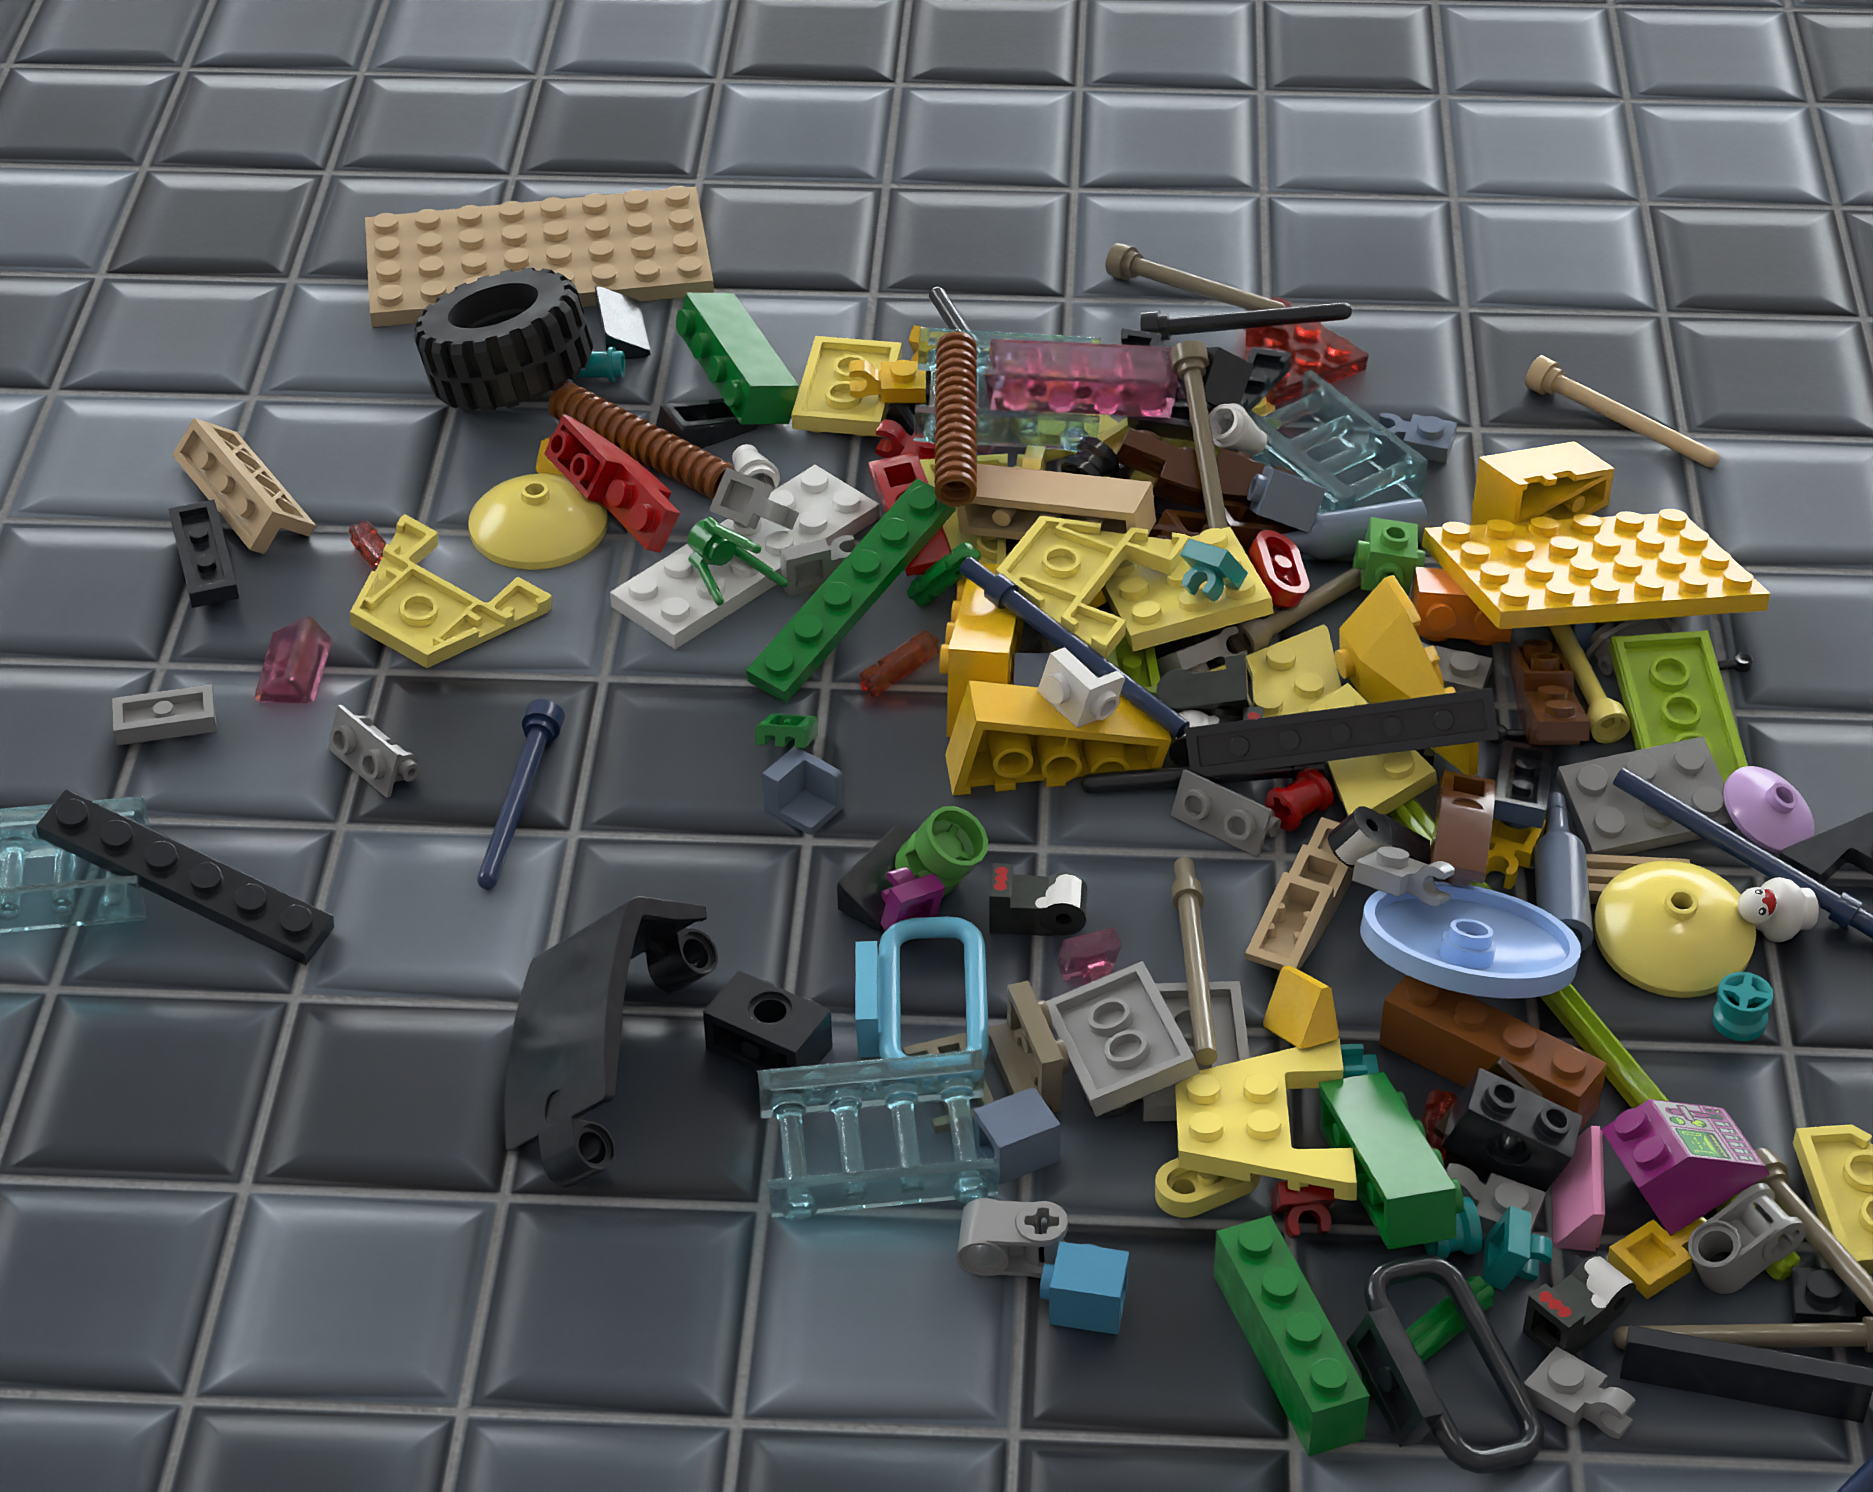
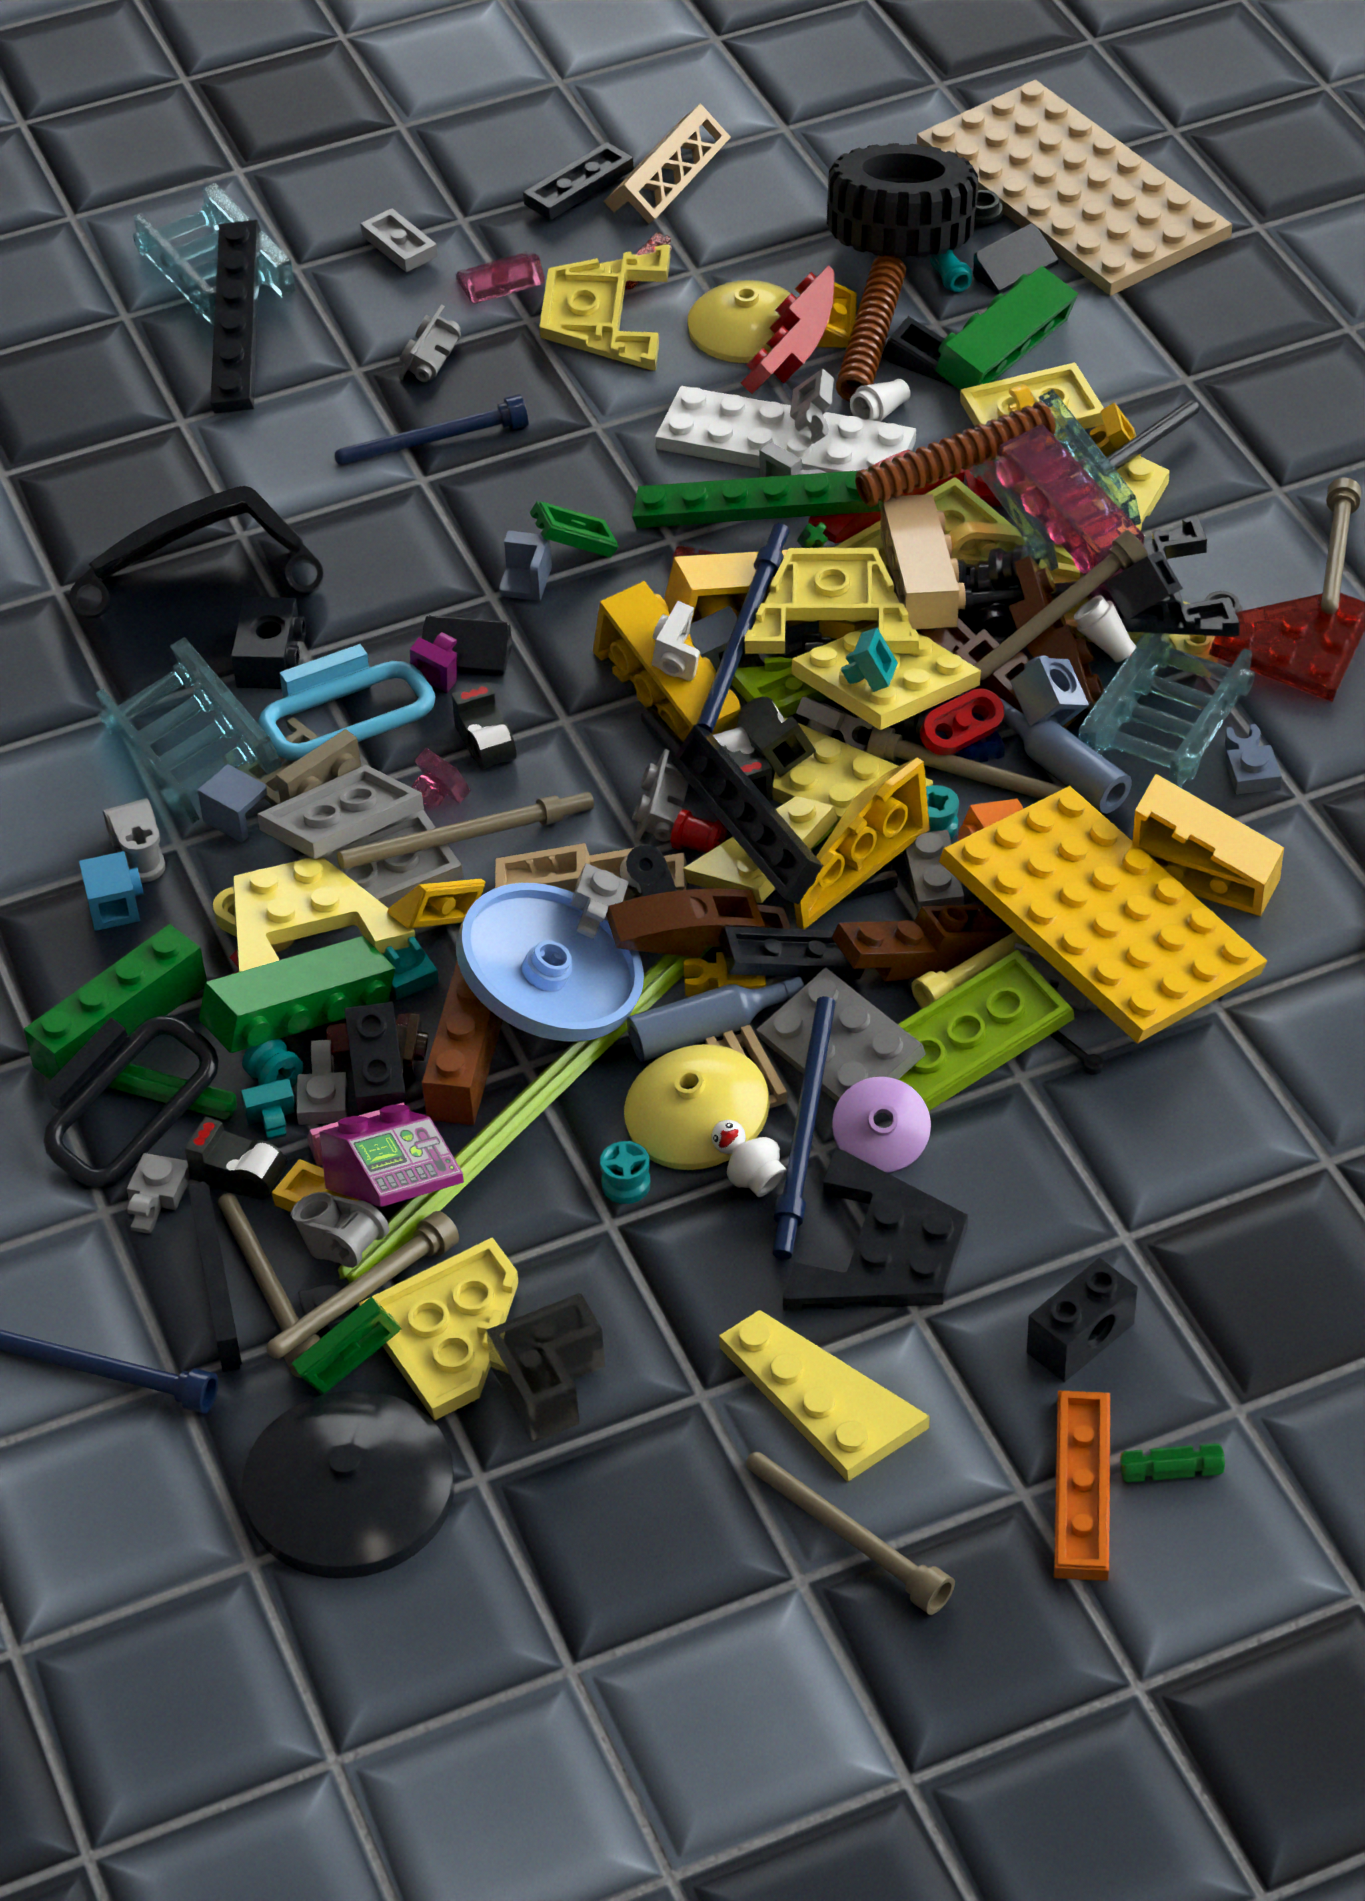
camera: 65 degrees right, 5 degrees up
(717, 546) = (746, 408): green plant -> none
(945, 844) = (485, 652): bright green wheel -> none
(1162, 323) = (1263, 550): black piece -> none
(1388, 551) = (1026, 776): bright green brick -> none

